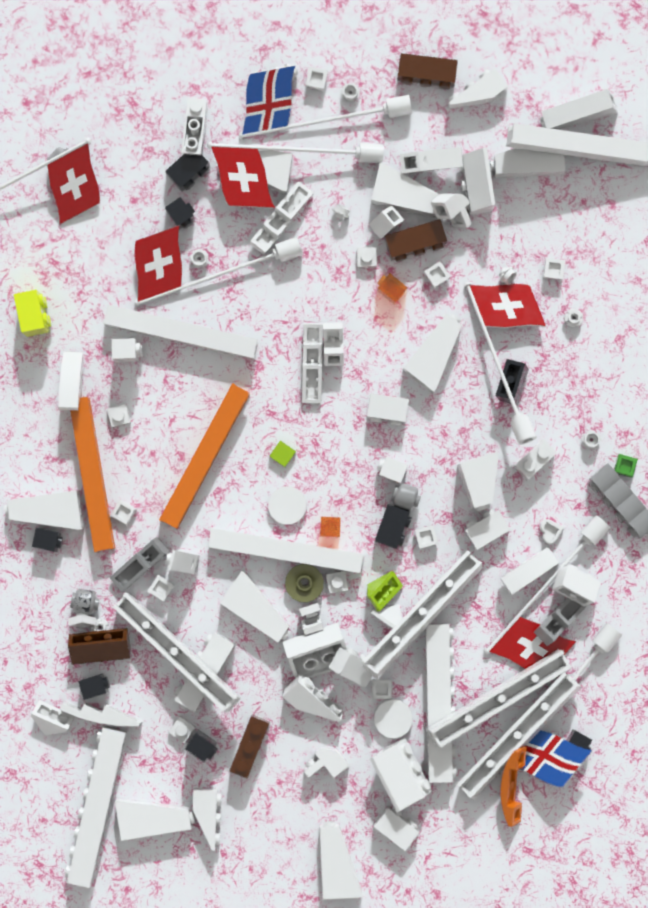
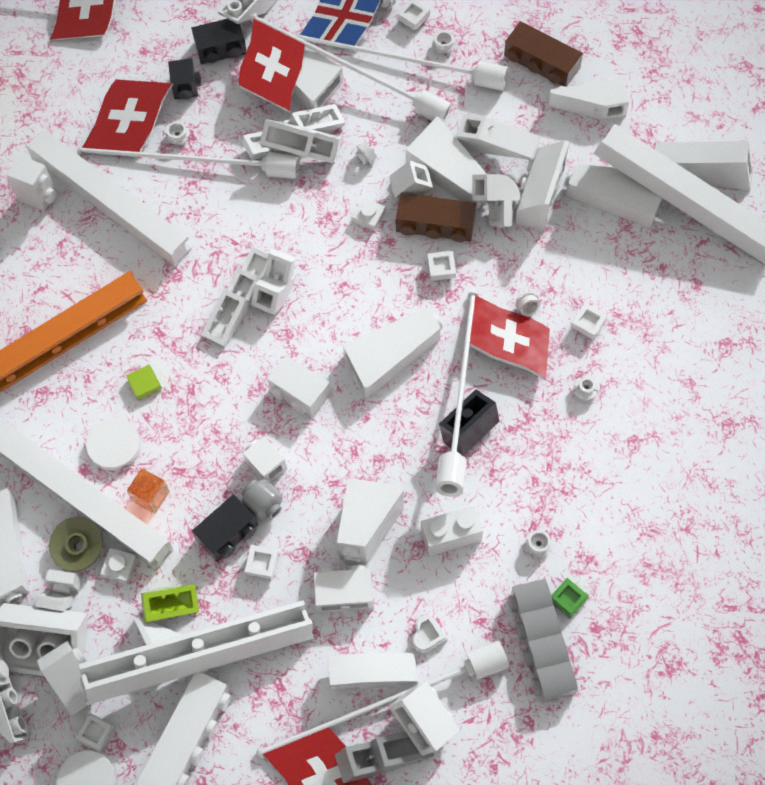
camera: 30 degrees right, 20 degrees down
(296, 227) = (300, 141): none -> white slope
(391, 288) = (379, 256): clear orange brick -> none

